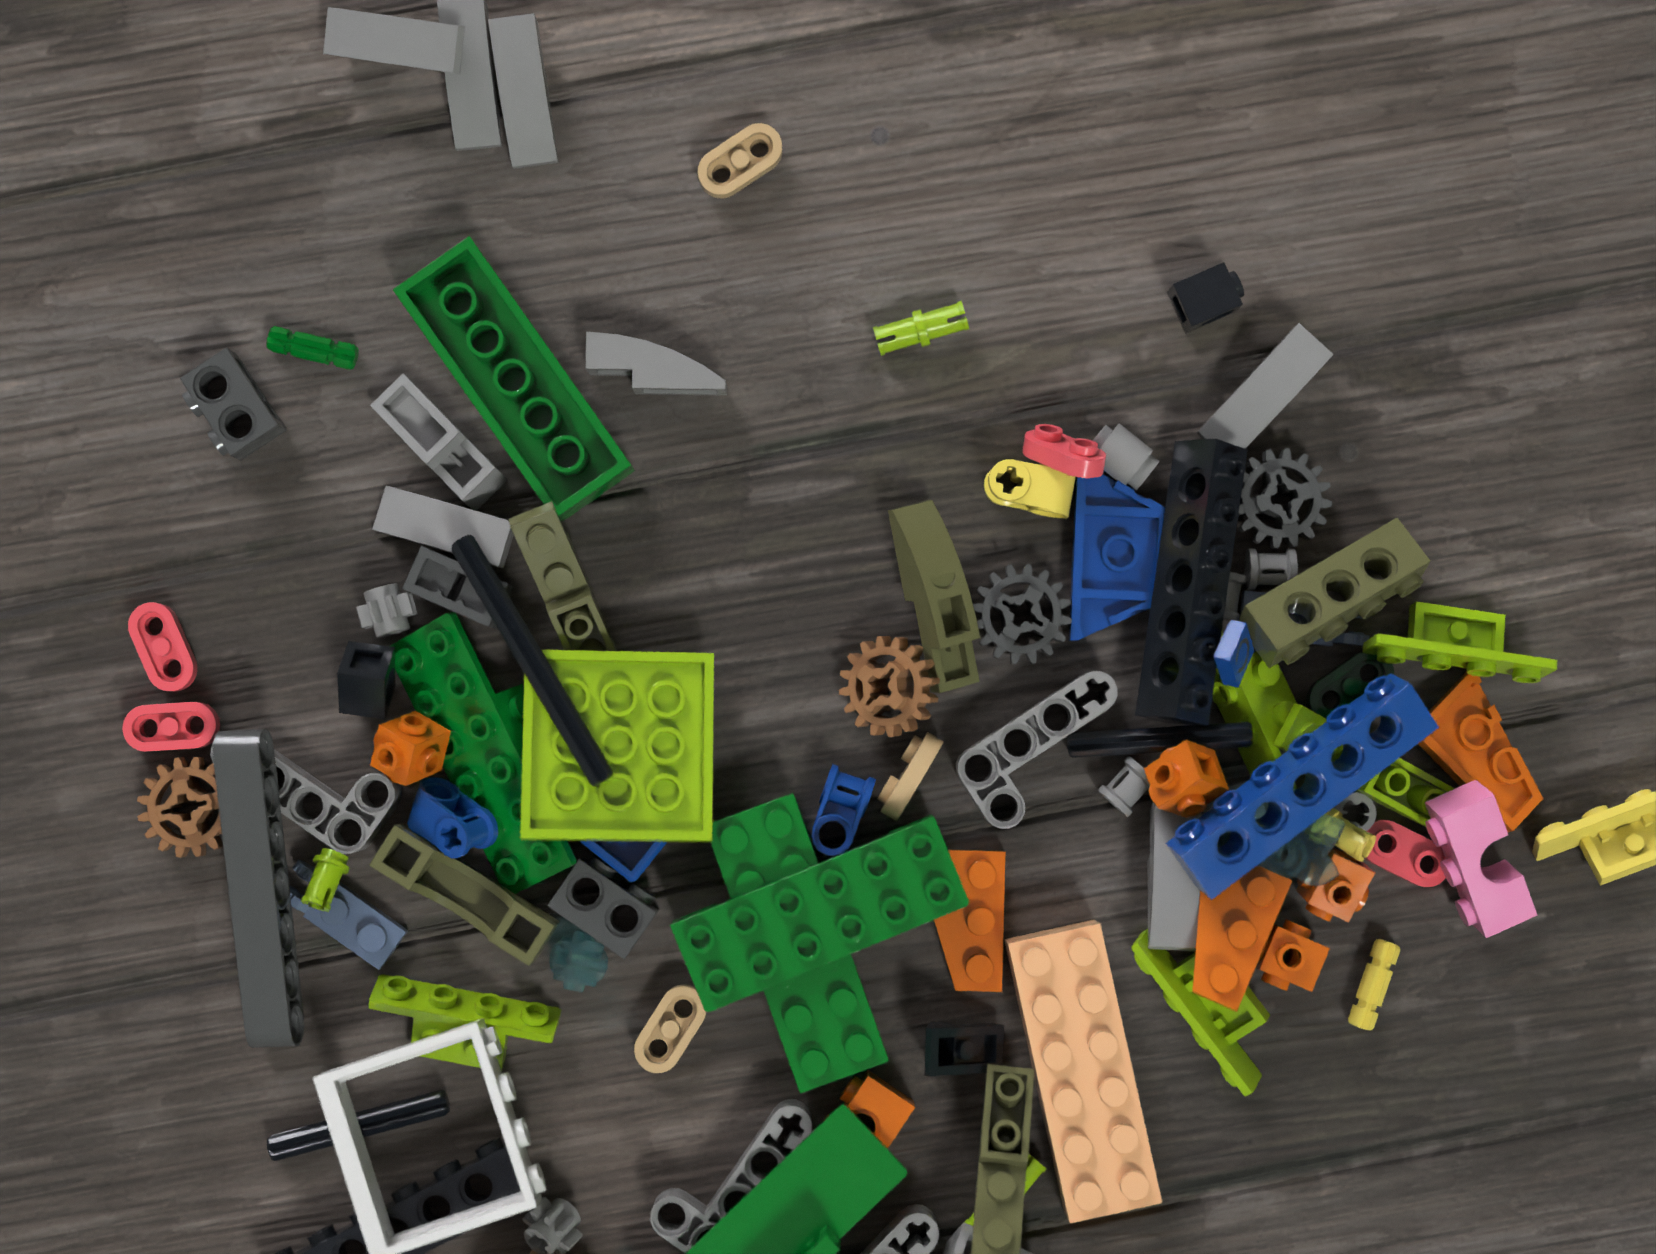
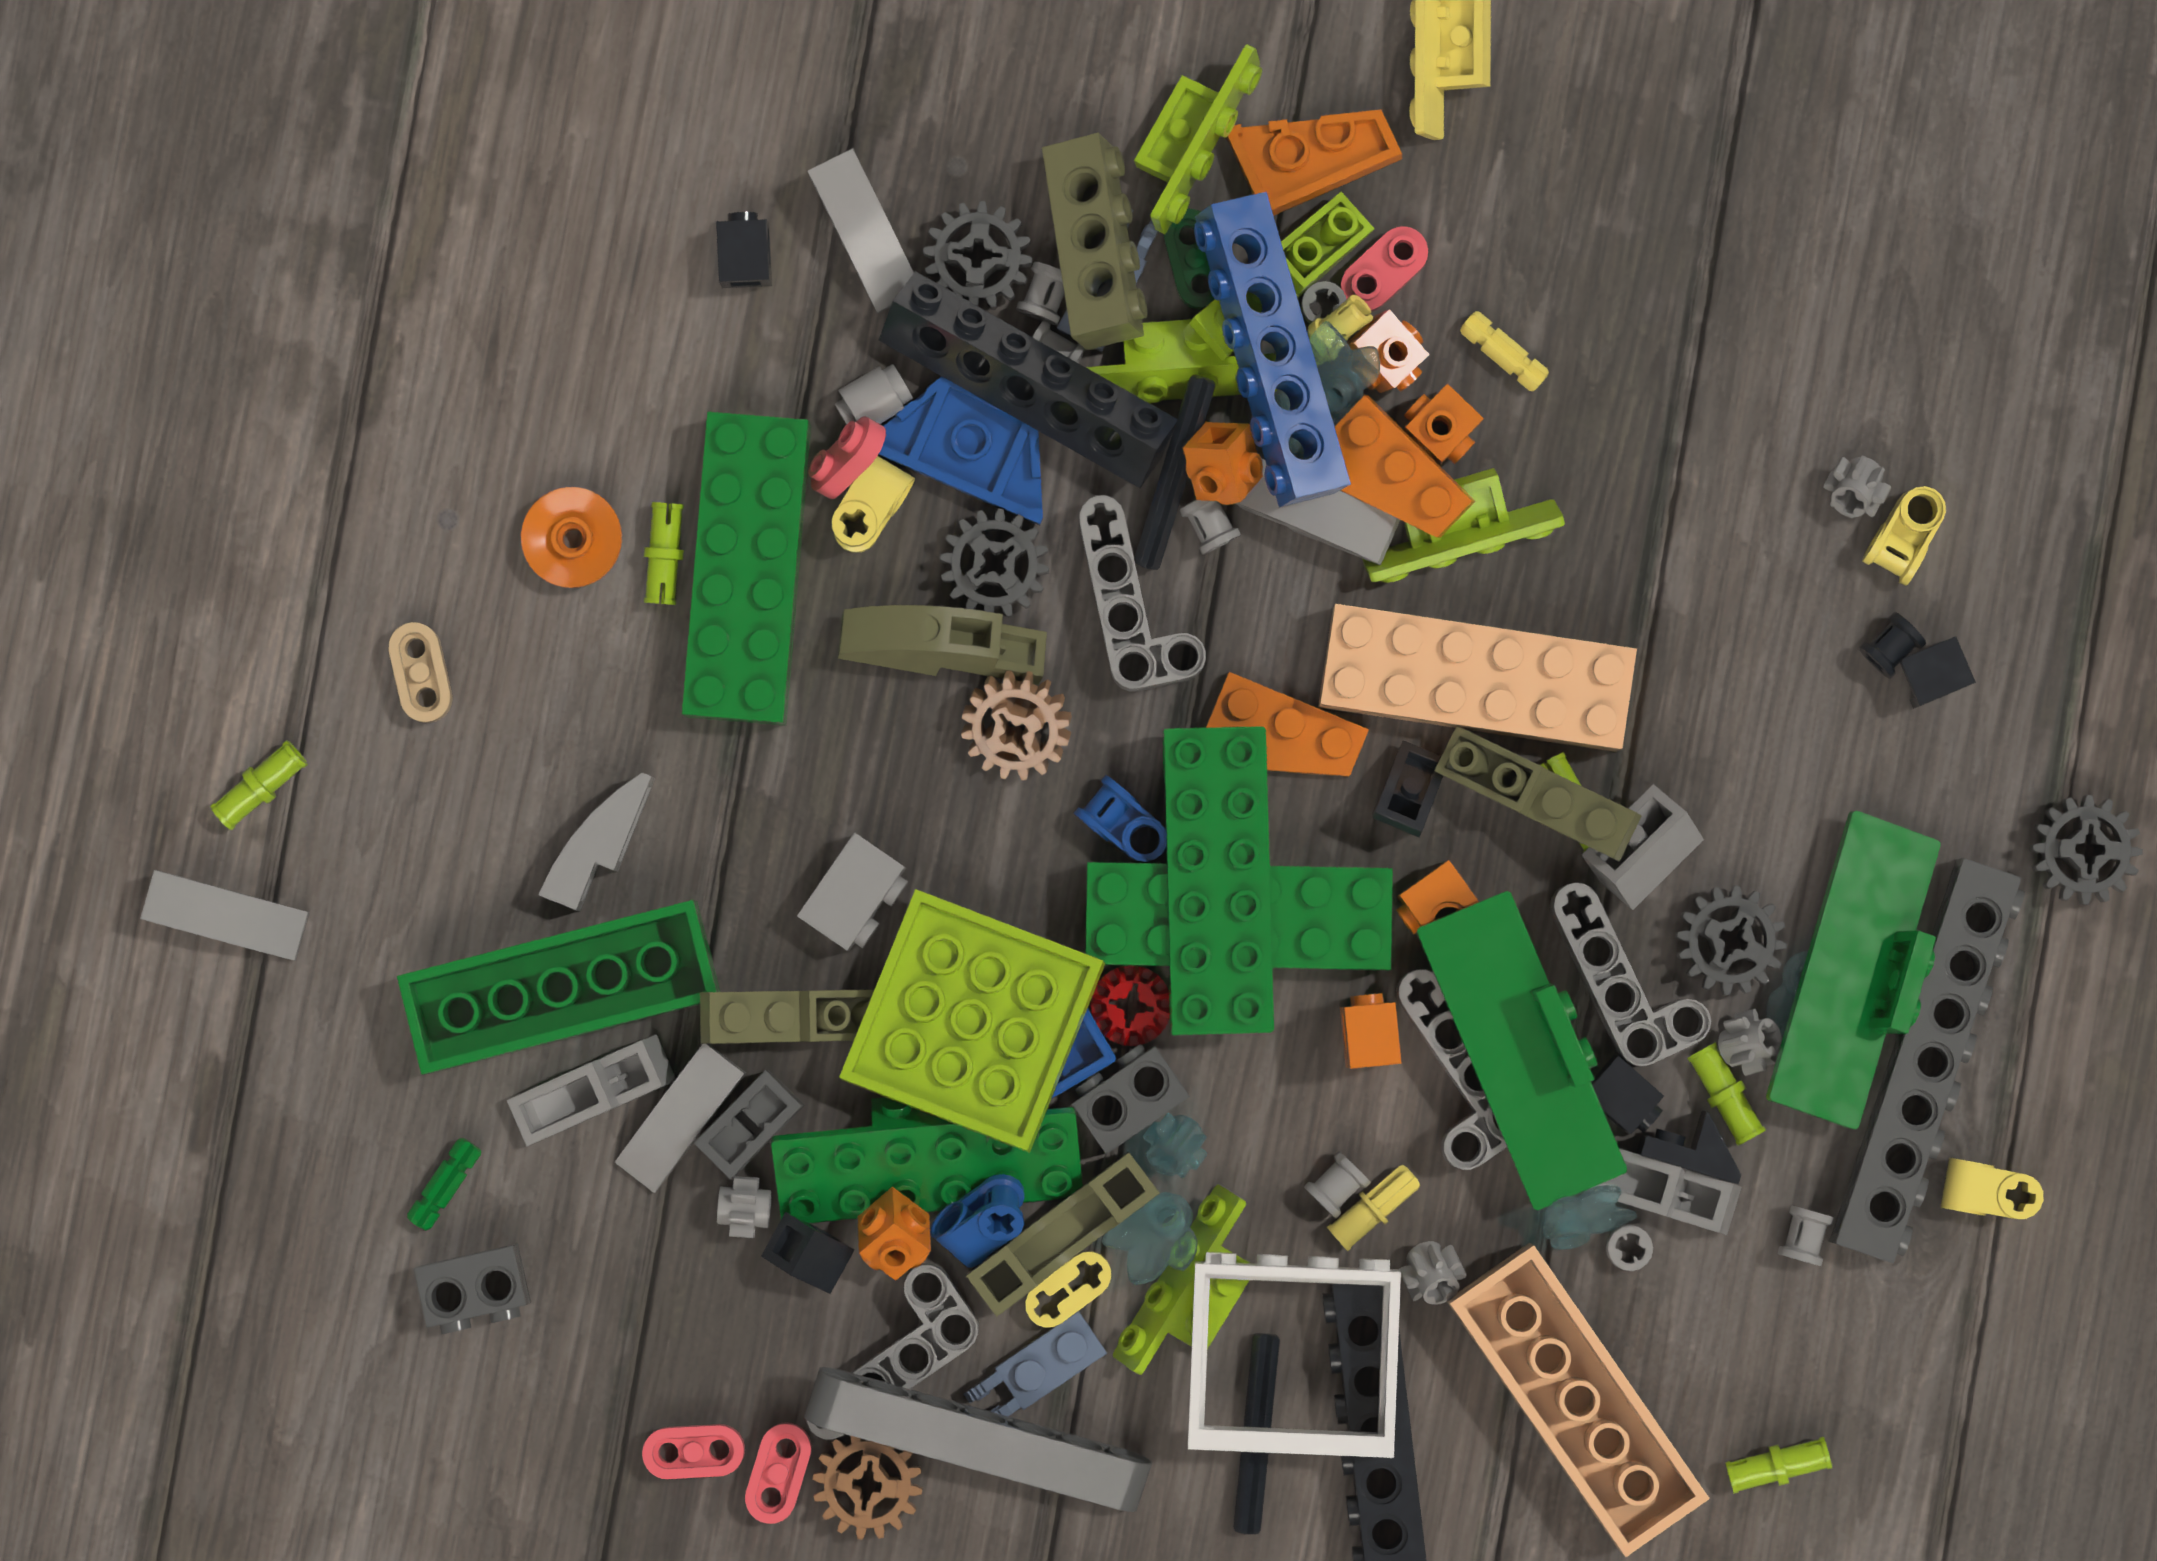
camera: 65 degrees left, 0 degrees up
(325, 879) = (993, 1369): lime pin -> none
(394, 40) = (163, 978): light grey slope -> none
(416, 925) = (1076, 1299): none -> light yellow beam
(486, 978) = (1154, 1243): none -> clear light blue plate
(523, 90) = (264, 867): light grey slope -> none
(532, 660) = (852, 1072): black axle -> none
(591, 1153) = (1374, 1206): none -> light yellow axle
(592, 61) = (259, 785): none -> lime pin
(598, 1114) = (1337, 1184): none -> light grey bush
(671, 1028) = (1278, 1078): tan plate -> none
(672, 894) = (1111, 1019): none -> red gear
(691, 601) = (853, 893): none -> light grey brick
(738, 1096) = (1370, 1032): none -> orange brick
(899, 791) = (1127, 756): tan plate -> none
(909, 221) = (555, 516): none -> orange dish
(935, 402) = (746, 568): none -> green brick
(1234, 653) = (1115, 365): blue tile -> none
(1464, 826) = (1375, 201): bright pink arch -> none

